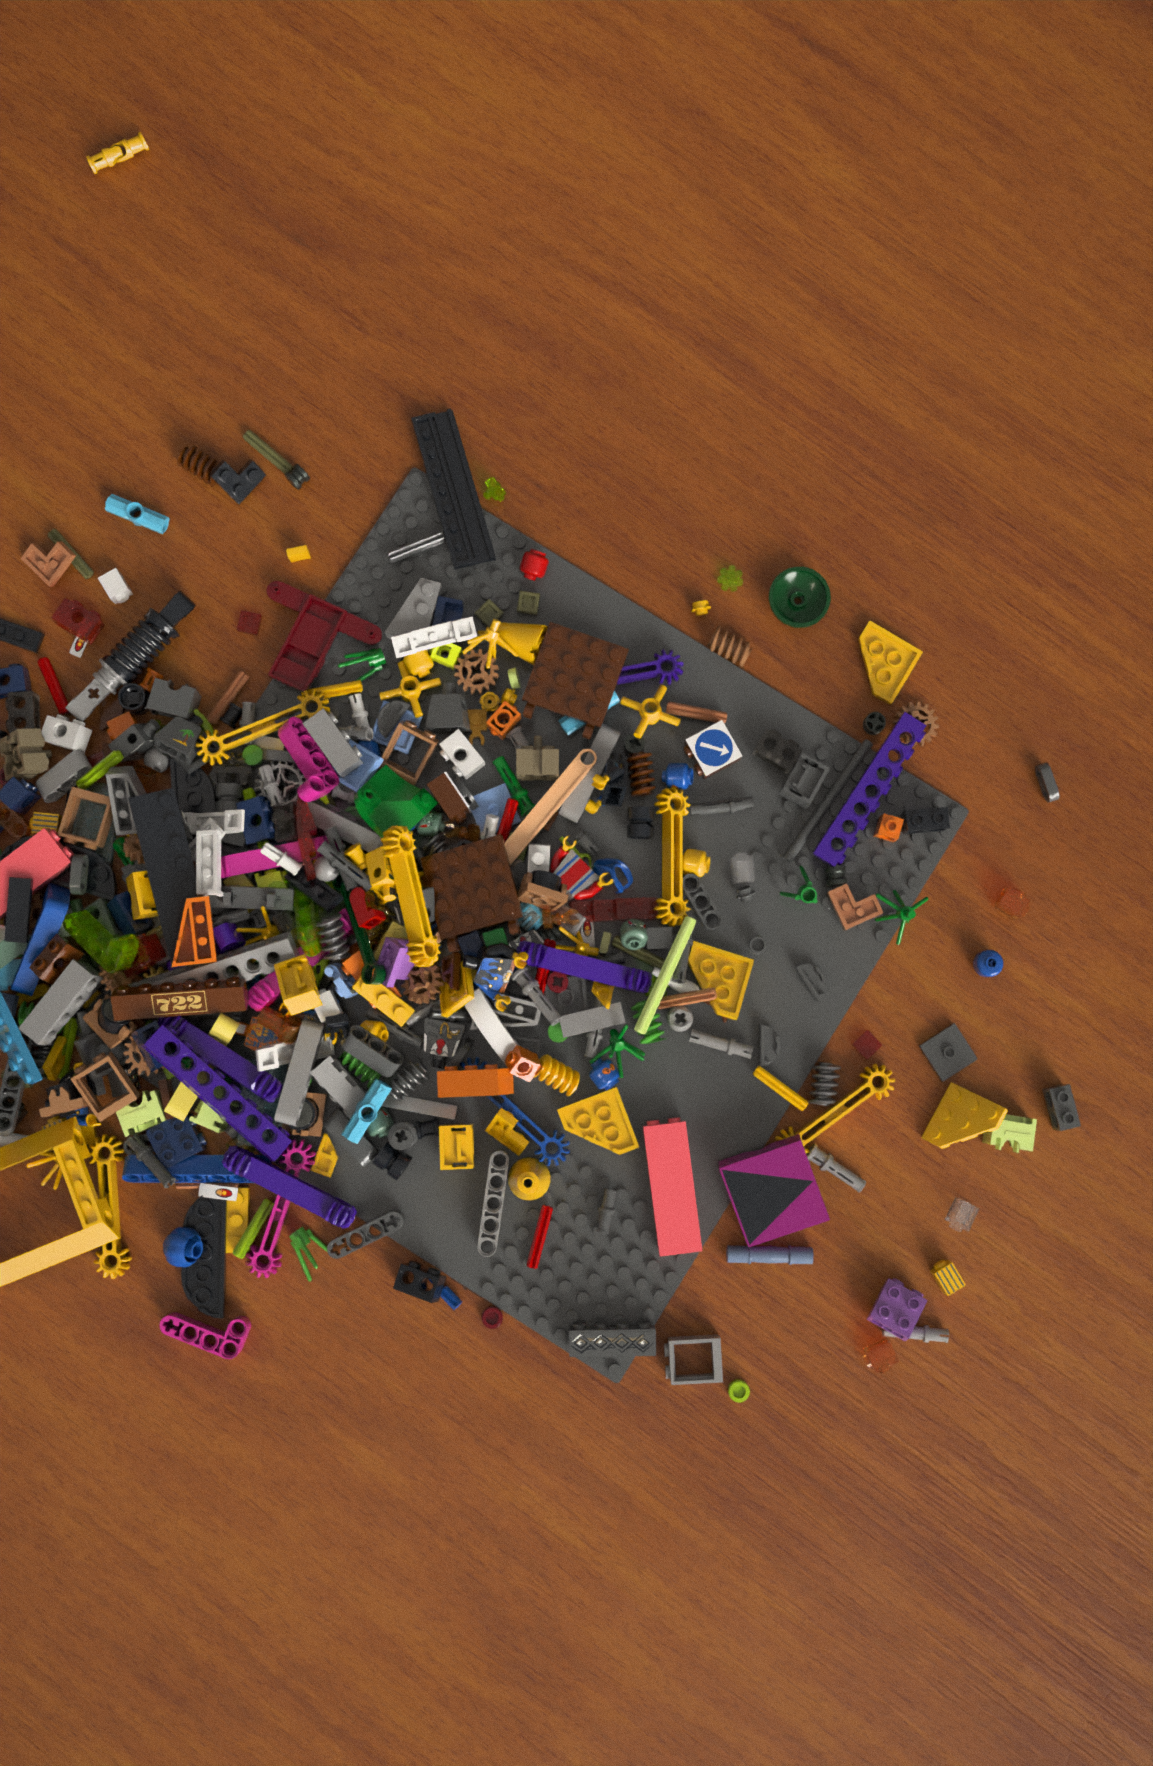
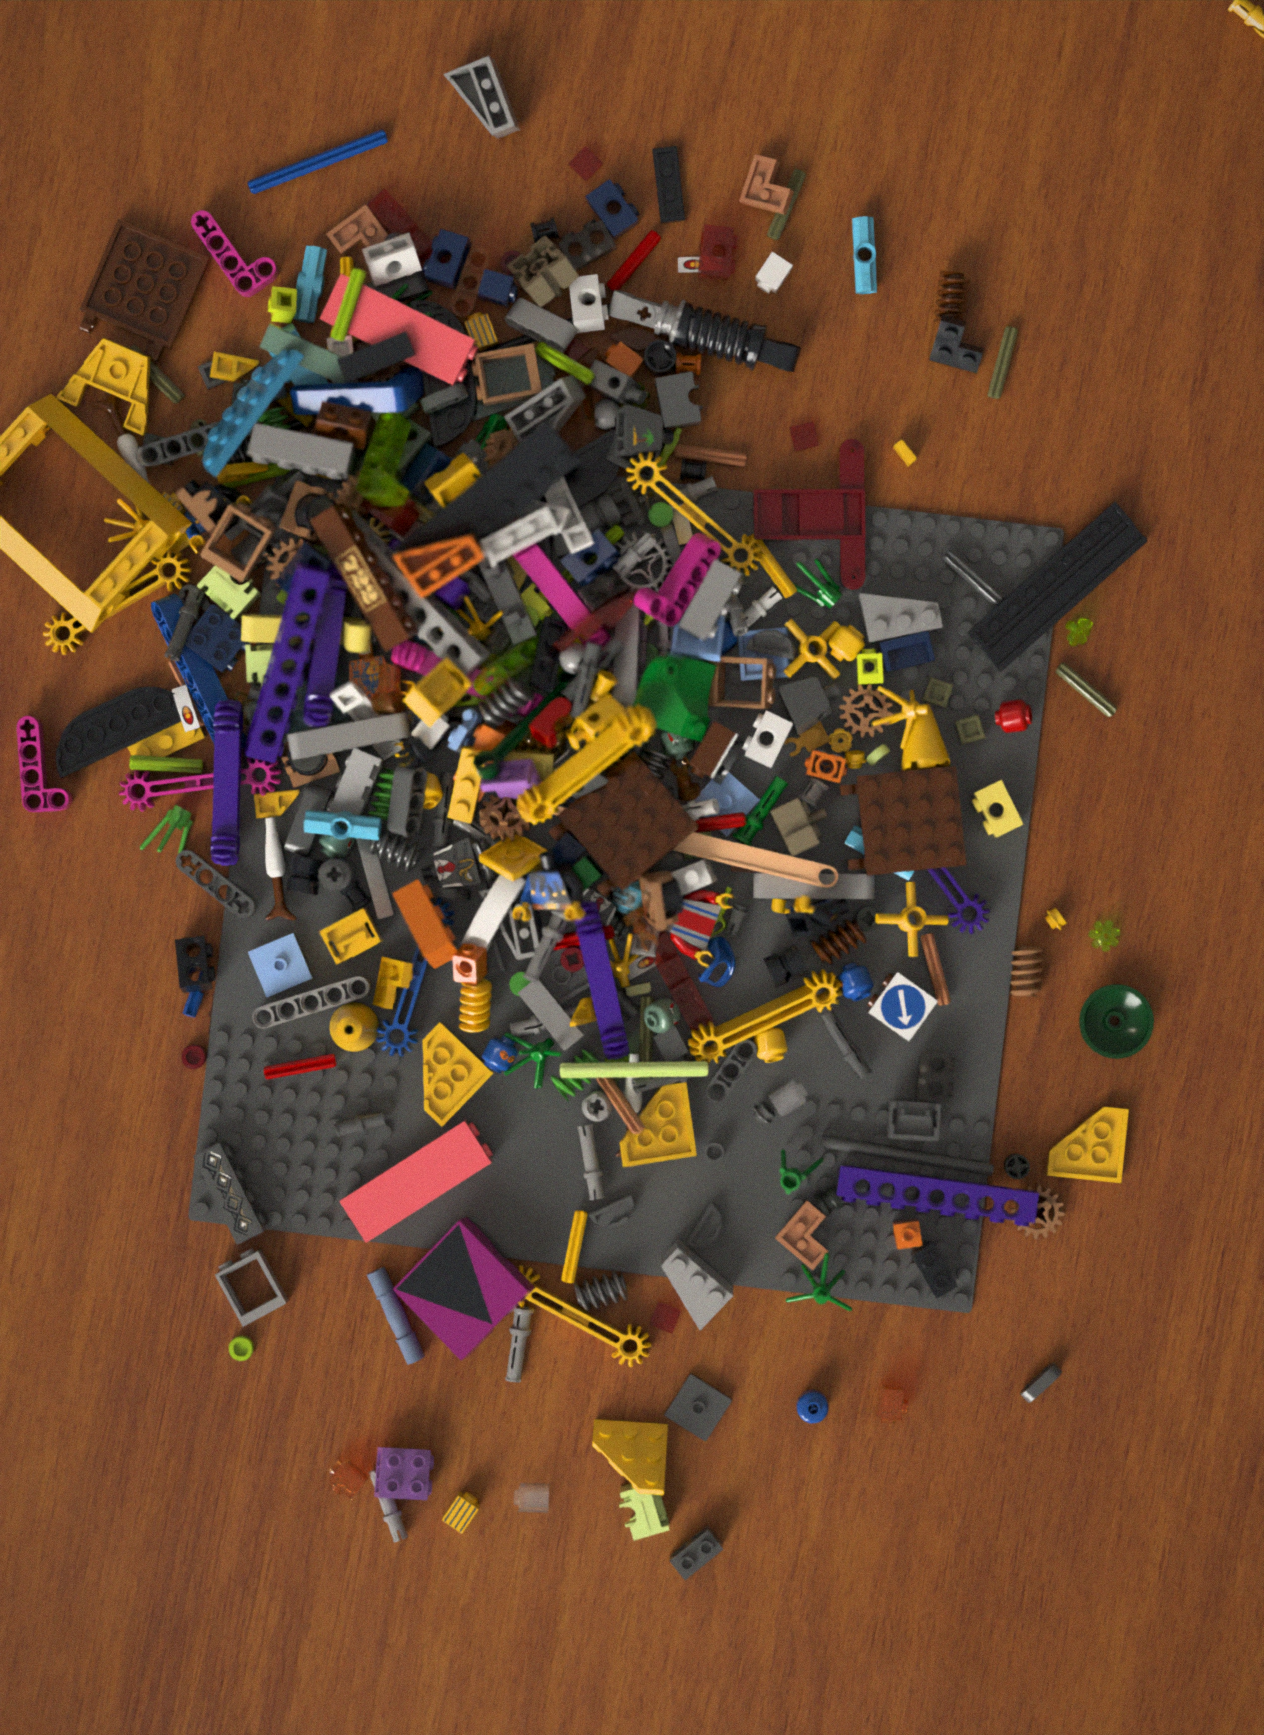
camera: 65 degrees right, 5 degrees up
(166, 1092) = (258, 606): reddish brown tile -> none
(182, 1243) = (112, 700): blue plant -> none
(281, 858) = (562, 605): white axle -> none
(297, 476) = (990, 408): pearl dark grey wheel -> none
(377, 1181) = (276, 868): none -> white piece
(433, 636) = (879, 649): white slope -> none
(451, 970) = (530, 842): reddish brown tile -> none
(453, 1213) = (280, 965): none -> light blue plate
(540, 505) = (1086, 689): none -> olive axle
(607, 602) = (1009, 817): none -> light yellow brick
(852, 1006) = (696, 1283): none -> light grey wedge

